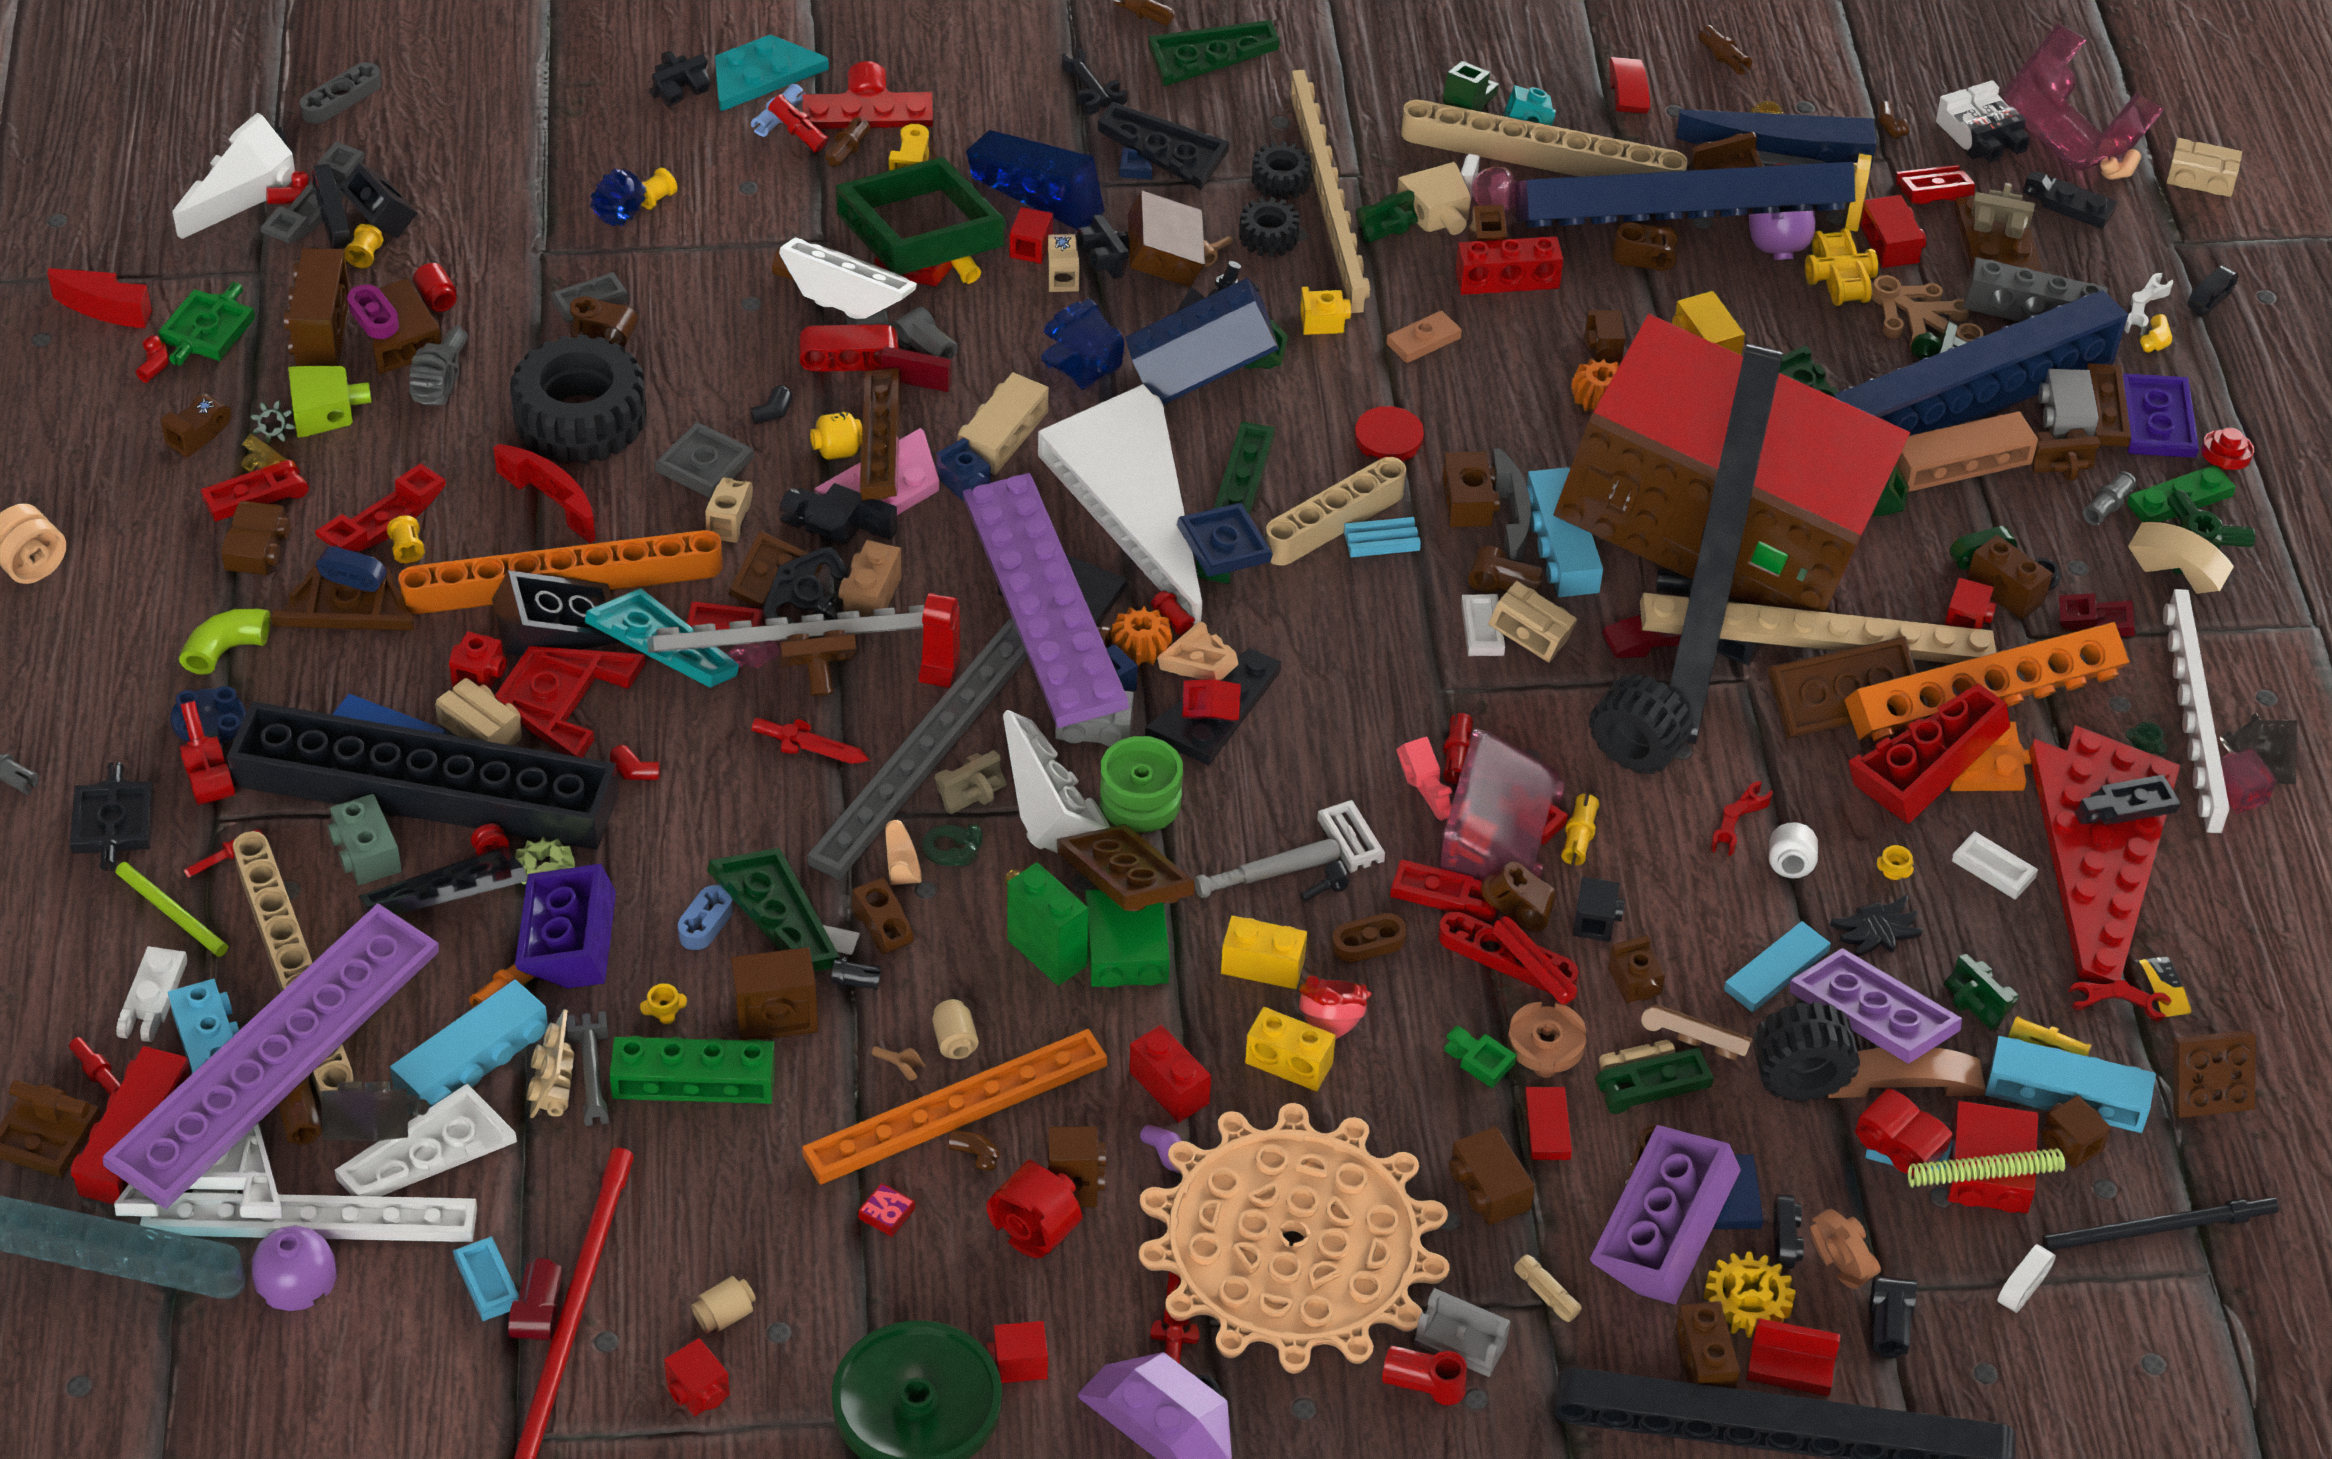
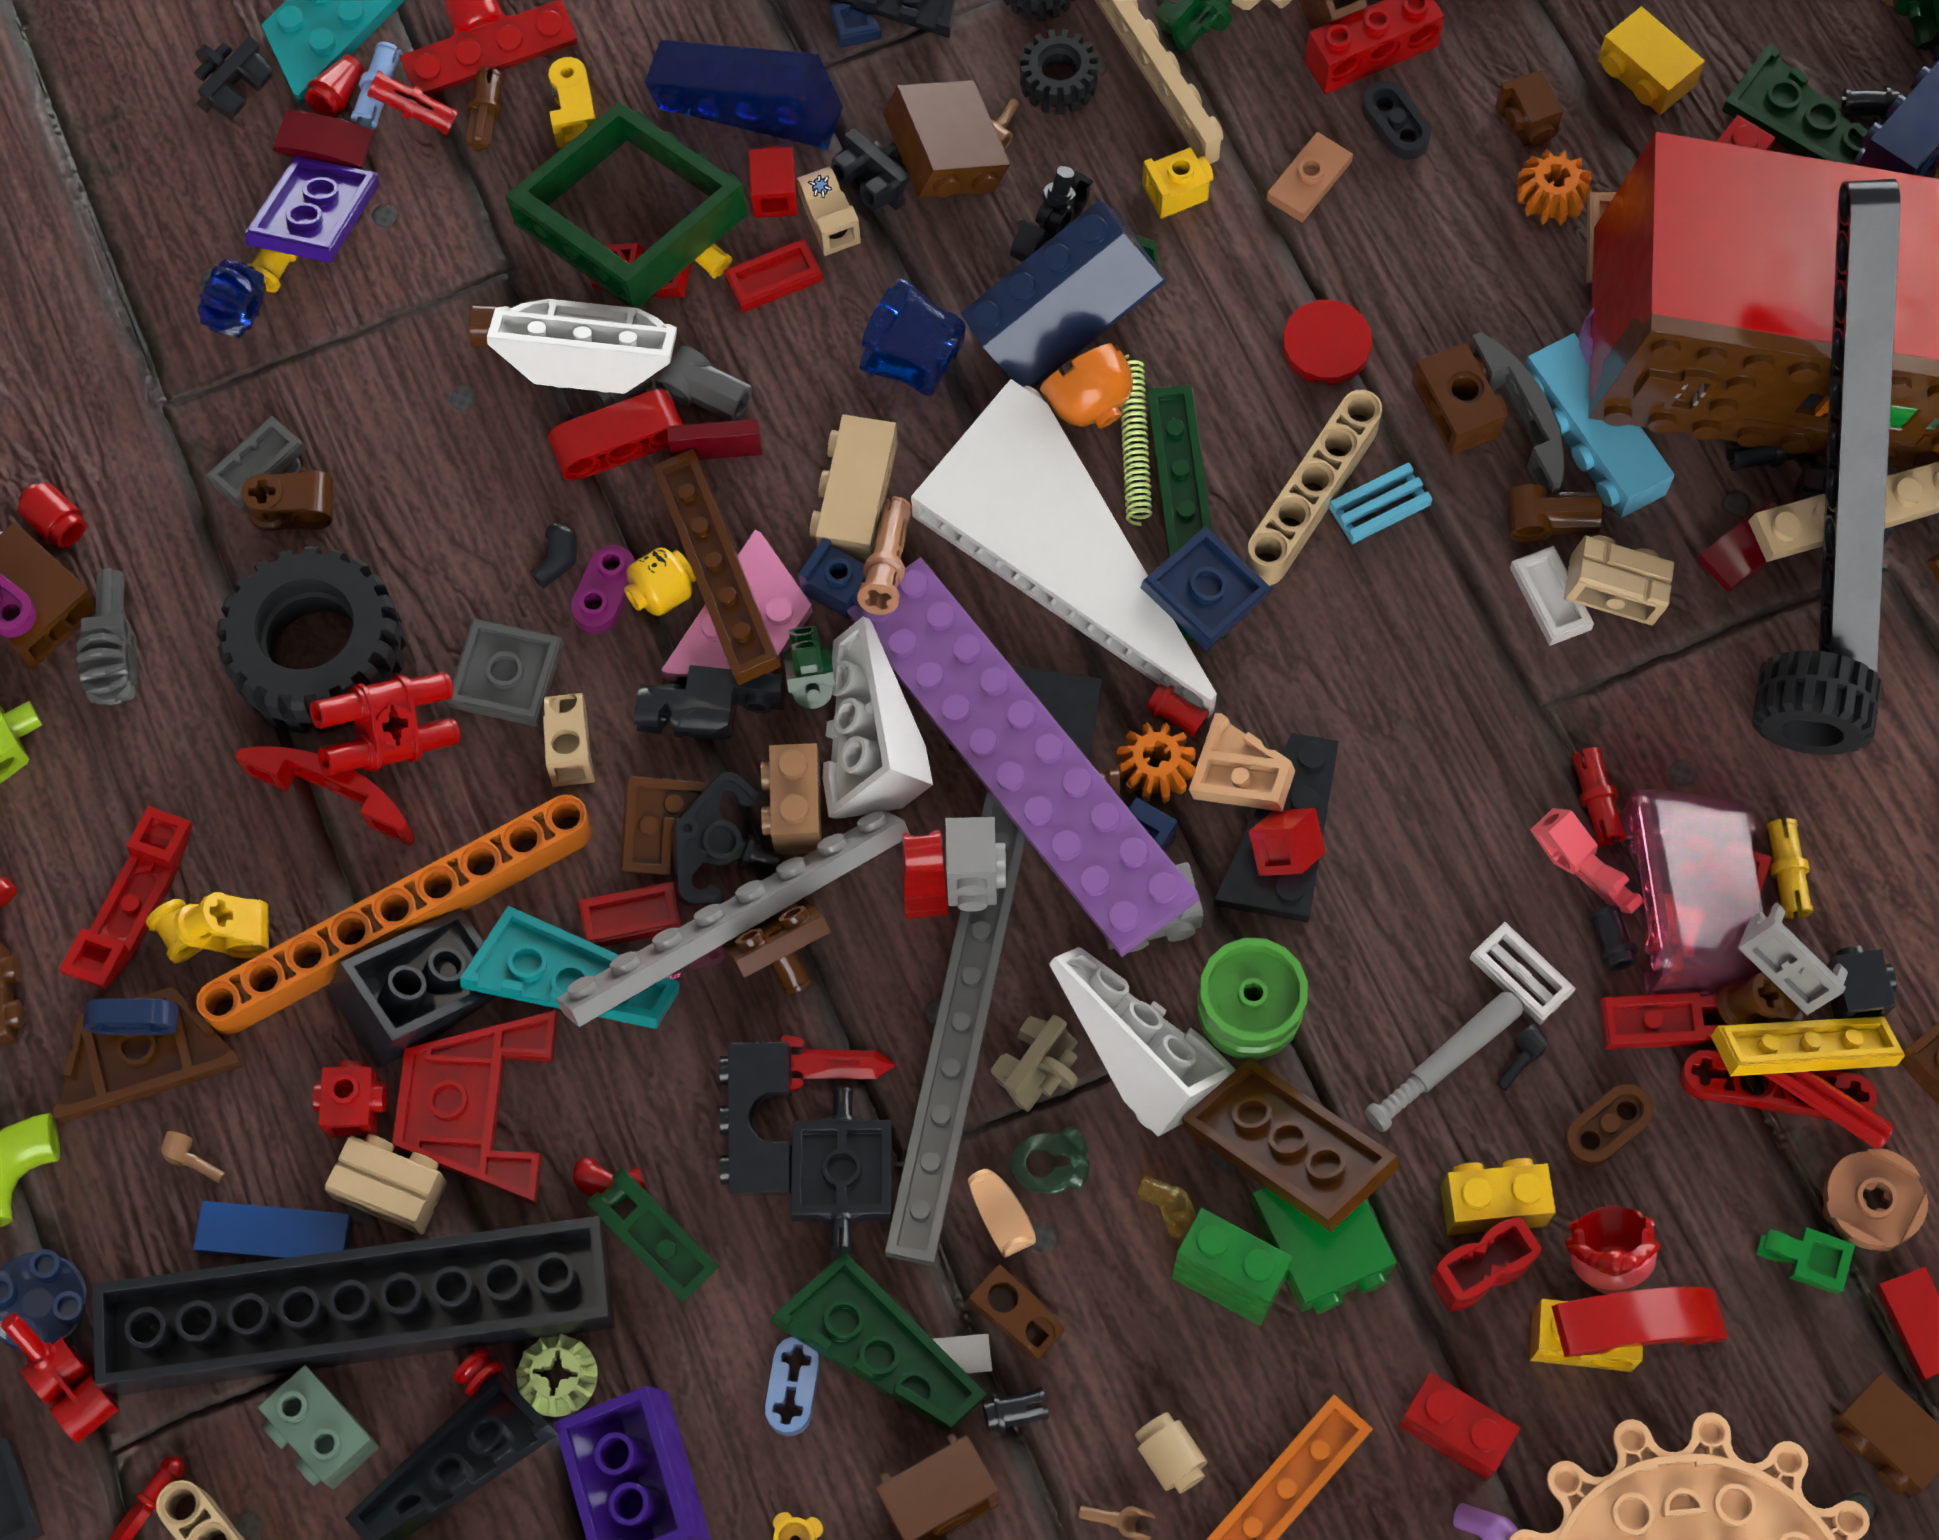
camera: 15 degrees left, 20 degrees up
(345, 663) = (176, 1152): none -> medium nougat hand
(443, 538) = (225, 925): none -> yellow piece
(617, 442) = (378, 704): none -> red pin
(650, 800) = (654, 1236): none -> dark green plate
(699, 163) = (312, 209): none -> dark purple tile
(721, 126) = (323, 139): none -> dark red slope
(747, 103) = (334, 86): none -> red cone
(763, 726) = (752, 1076): none -> black arch
(793, 436) = (602, 586): none -> magenta plate
(800, 802) = (841, 1170): none -> black plate
(917, 511) = (809, 668): none -> dark green hips
(948, 562) = (876, 743): none -> white wedge
(975, 638) = (973, 863): none -> light grey brick
(1000, 464) = (884, 567): none -> nougat pin
(1006, 291) = (773, 275): none -> red tile
(1198, 403) = (1091, 388): none -> orange cylinder
(1223, 445) = (1127, 448): none -> yellowish green piece
(1234, 983) = (1495, 1261): none -> red brick
(1335, 1033) = (1639, 1319): none -> red slope
(1427, 838) = (1613, 938): none -> black pin
(1503, 318) = (1399, 122): none -> black plate
(1536, 923) = (1807, 1046): none -> yellow tile
(1542, 862) = (1790, 962): none -> light grey hinge

